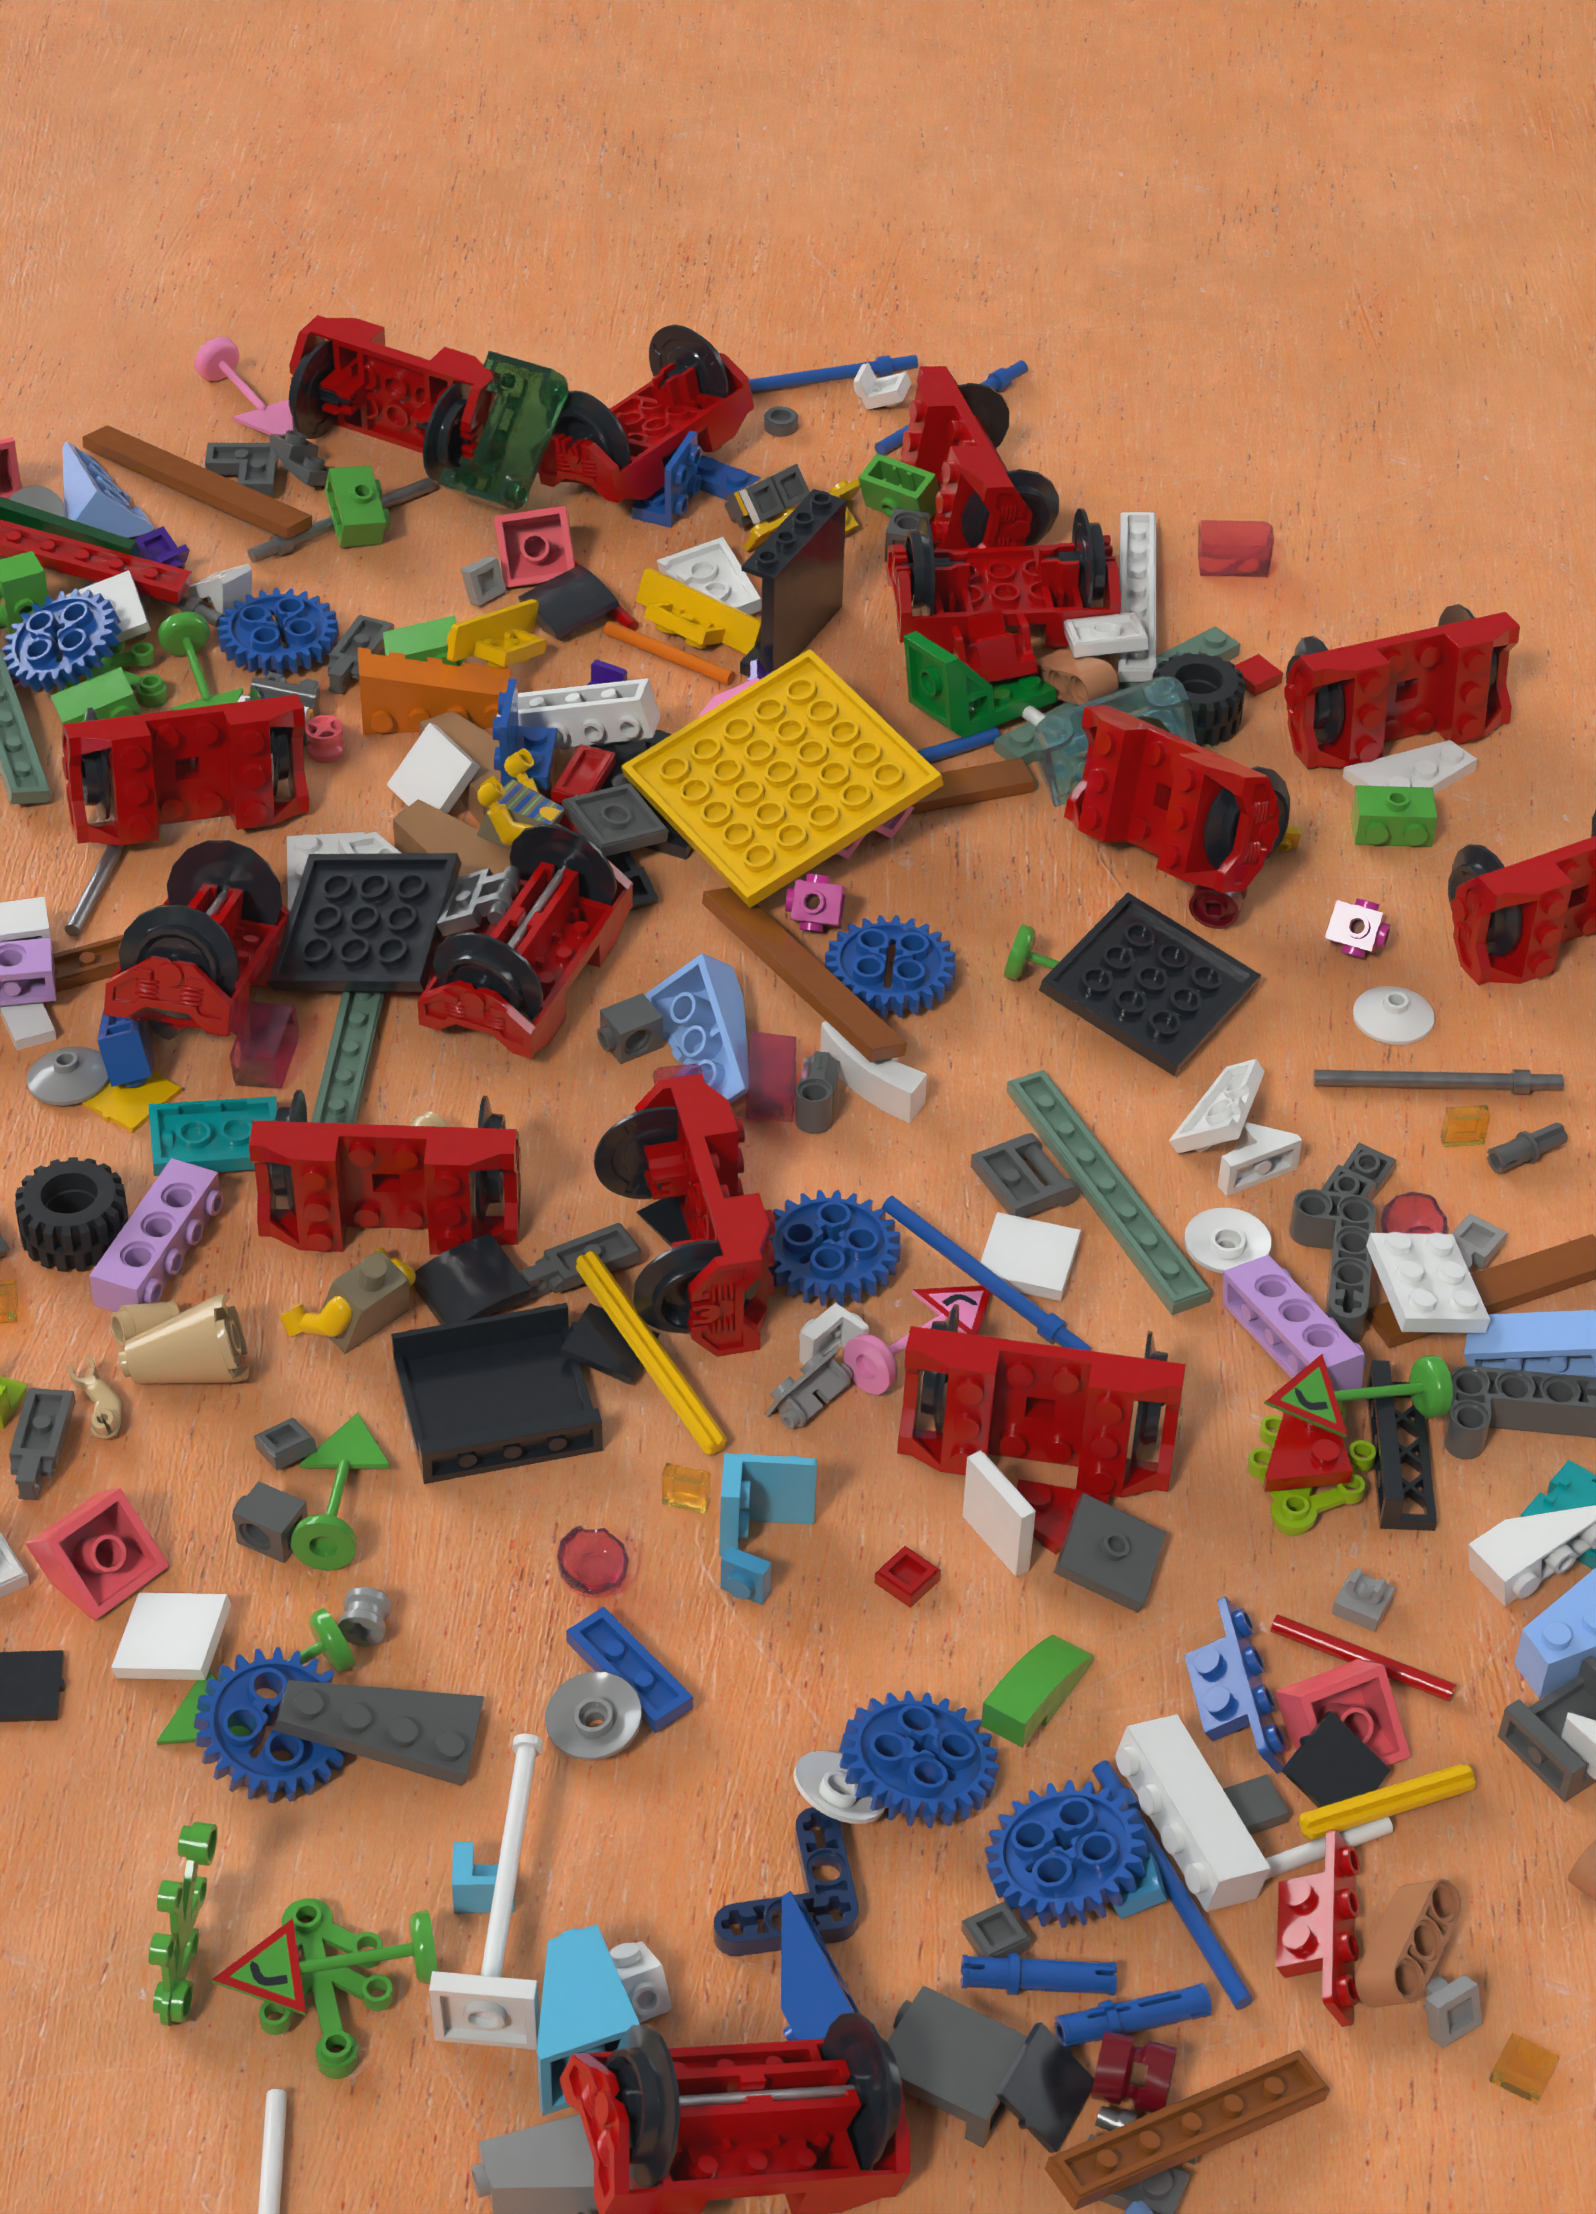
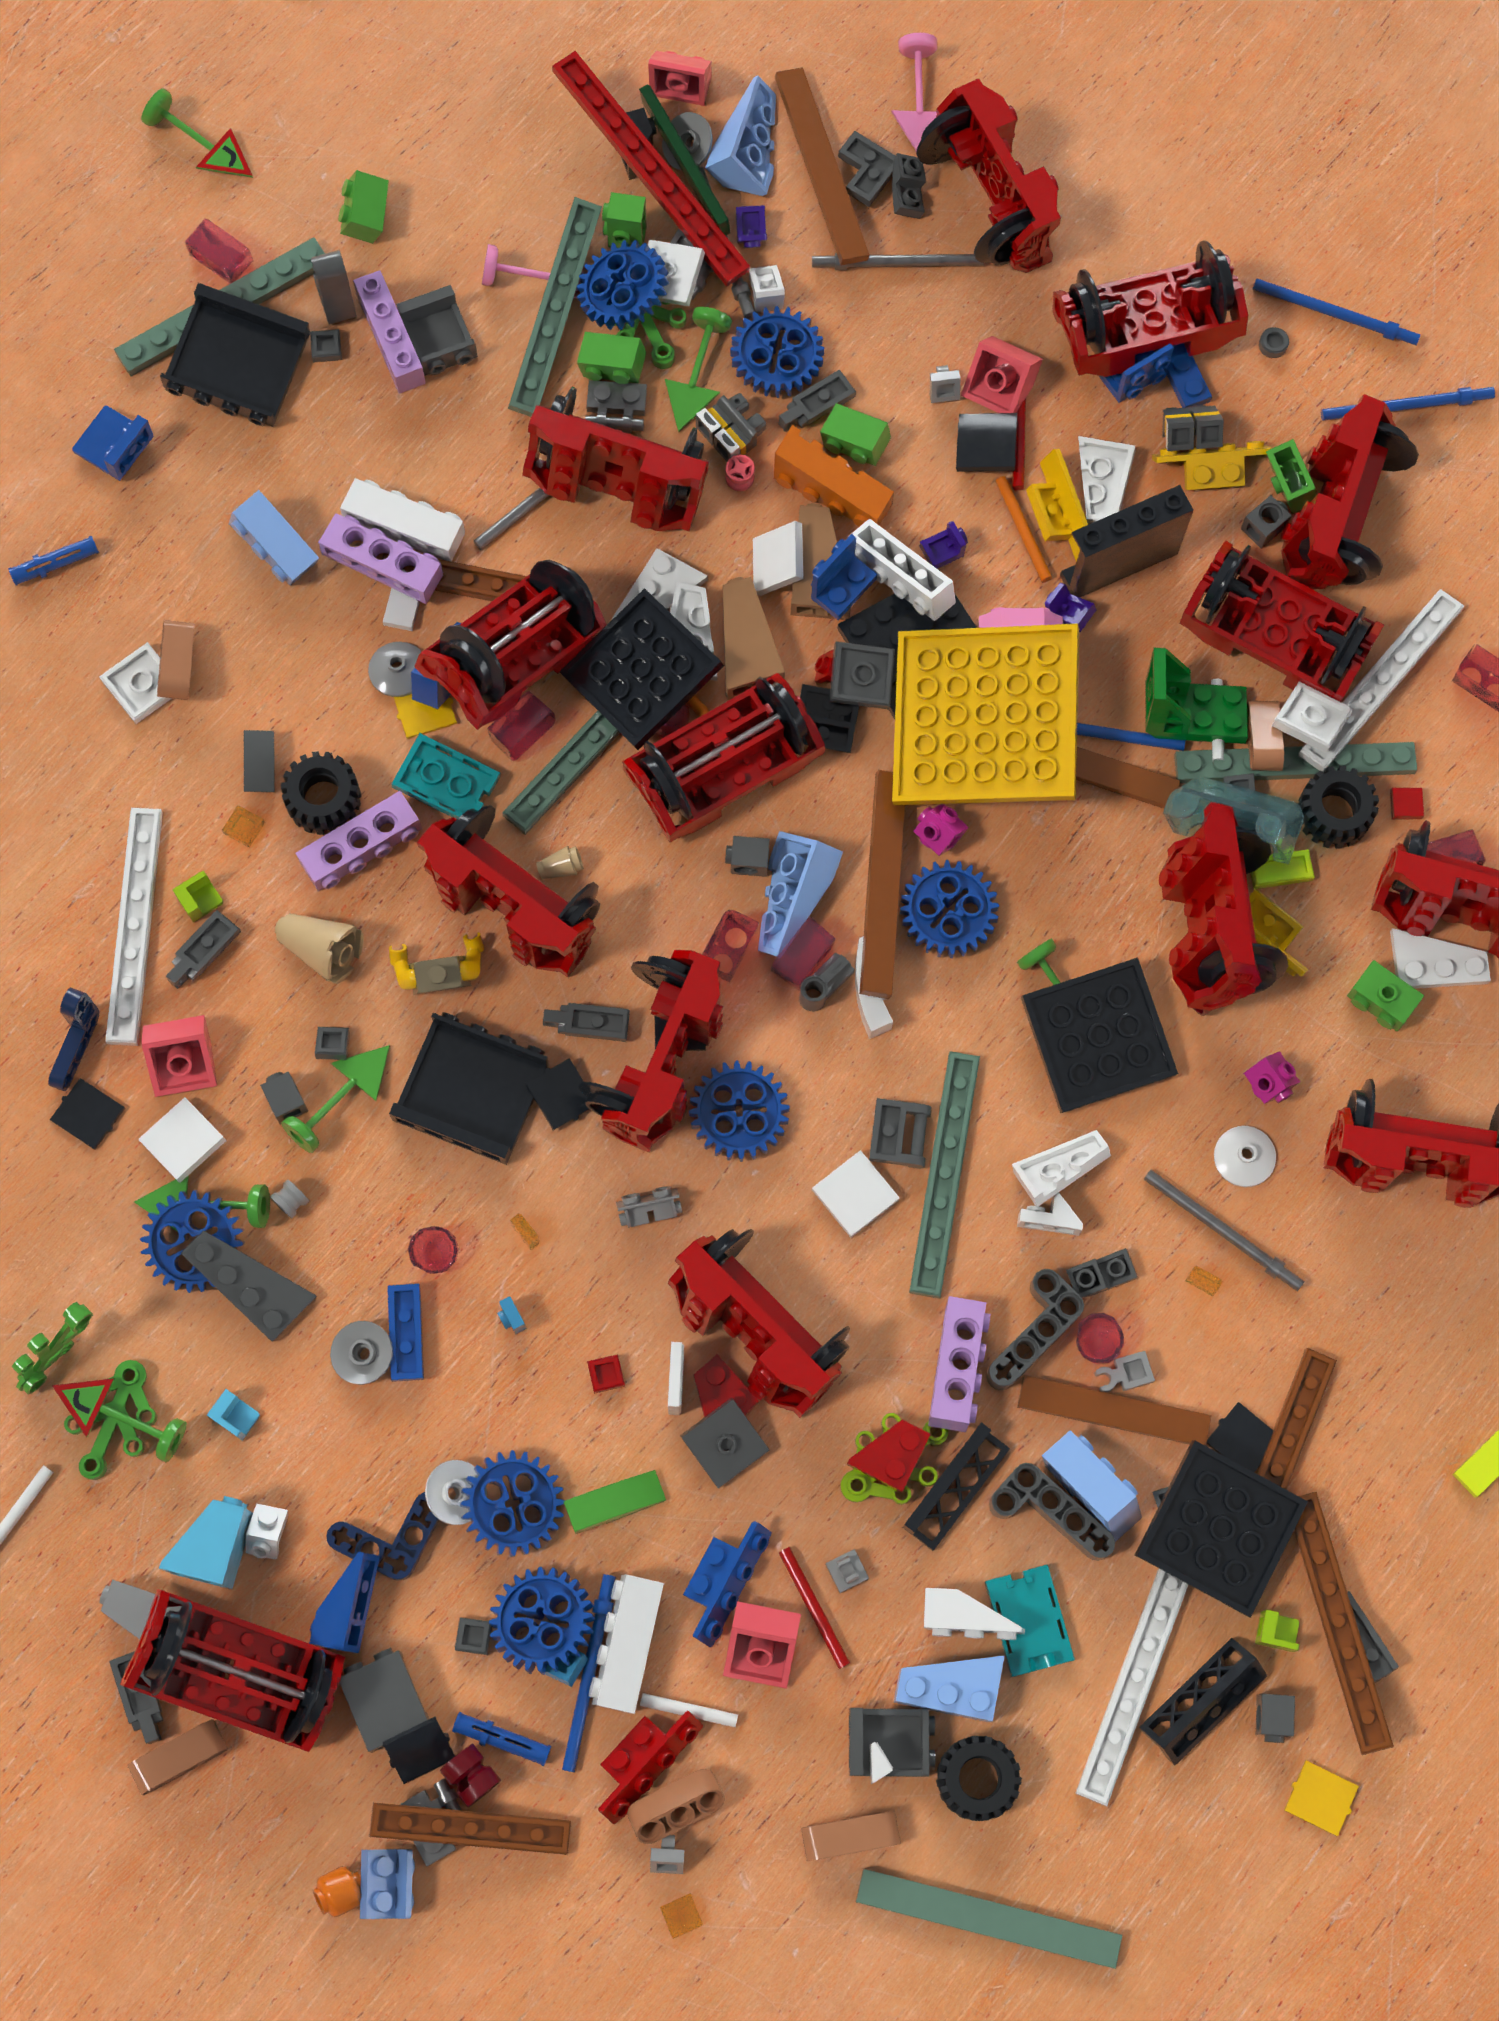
camera: 35 degrees right, 30 degrees up
(108, 1405) = (256, 947): tan arm -> none
(138, 1318) = (312, 900): tan cone -> none
(356, 506) = (905, 263): bright green brick -> none
(471, 1282) = (512, 996): black slope -> none
(479, 896) = (706, 700): flat silver plate -> none
(487, 2006) = (172, 1501): white tile -> none
(498, 636) = (908, 460): yellow bracket -> none
(514, 434) = (1039, 280): clear green windscreen -> none
(515, 805) = (800, 640): torso -> none
(584, 773) = (873, 619): red tile -> none
(651, 1353) = (574, 1120): yellow axle -> none
(764, 1491) = (532, 1271): medium azure bracket -> none
(828, 1331) = (685, 1174): white bracket -> none
(874, 1362) = (782, 1204): bright pink piece -> none
(882, 391) = (1366, 356): white bracket -> none
(992, 650) = (1227, 679): red panel -> none
(1037, 1975) = (472, 1678): blue pin -> none
(1049, 1325) = (824, 1257): blue bar -> none
(1226, 1238) = (985, 1254): white dish -> none
(1258, 1804) = (674, 1658): dark grey tile -> none
(1315, 1401) = (913, 1432): bright green piece -> none
(1334, 1764) = (728, 1675): black piece -> none
(1387, 1801) = (743, 1711): yellow axle -> none
(1427, 1283) = (1059, 1393): white plate -> none
(1526, 1147) = (1232, 1321): dark grey axle -> none

